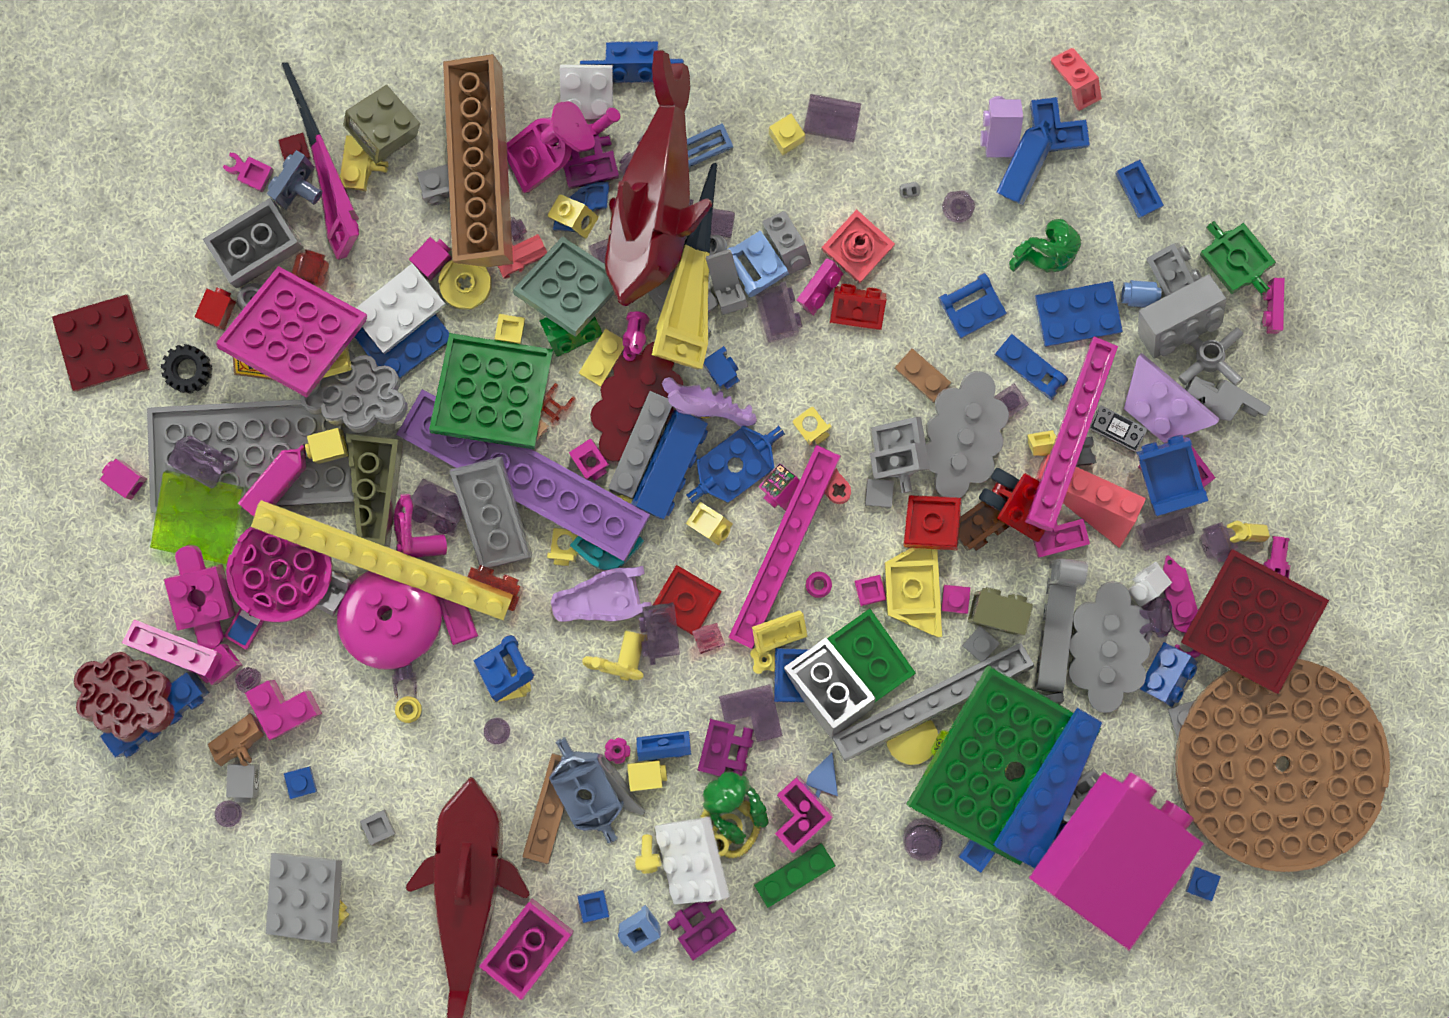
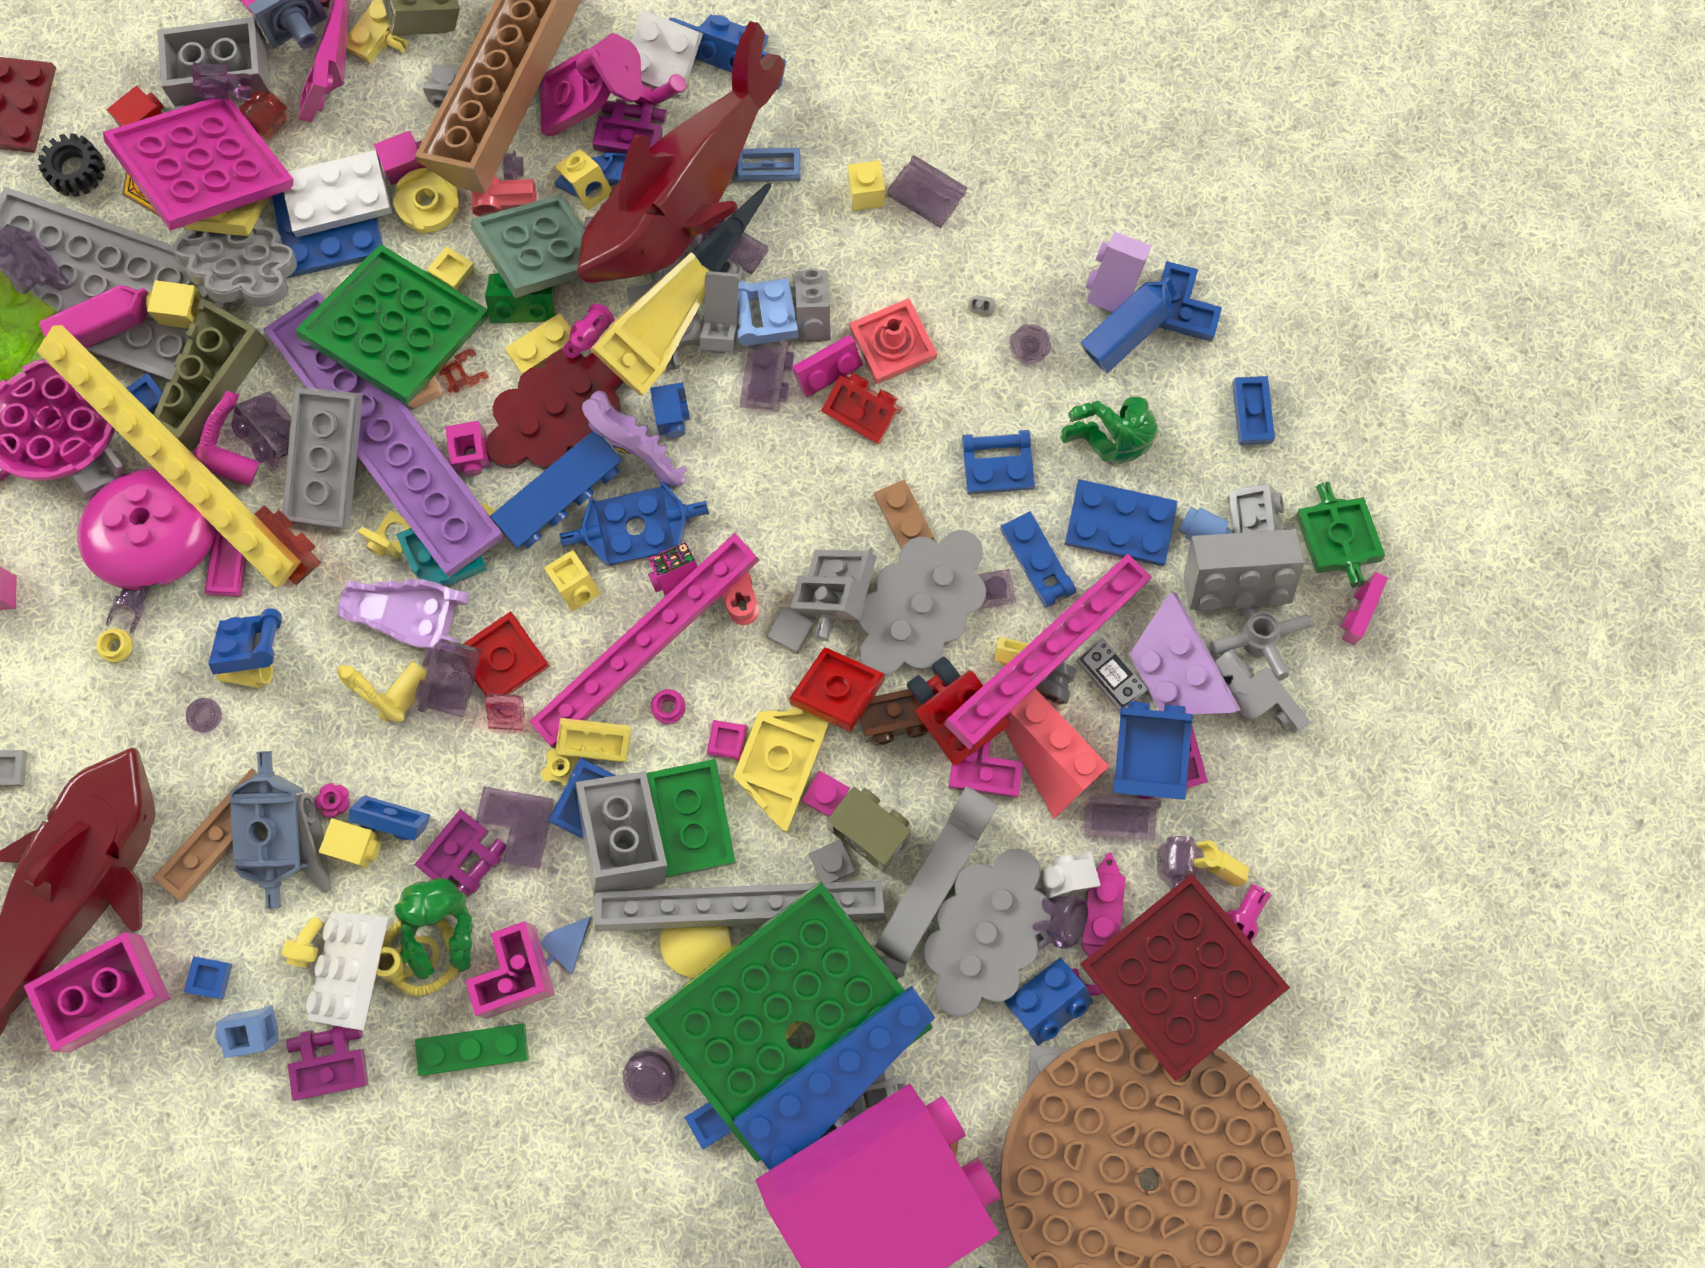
camera: 20 degrees right, 10 degrees down
(271, 262) = (217, 83): none -> clear purple plate
(336, 518) = (146, 392): none -> blue plate
(640, 444) = (534, 454): light grey plate -> none
(819, 434) = (751, 529): light yellow bracket -> none
(1079, 76) = (1234, 260): coral bracket -> none

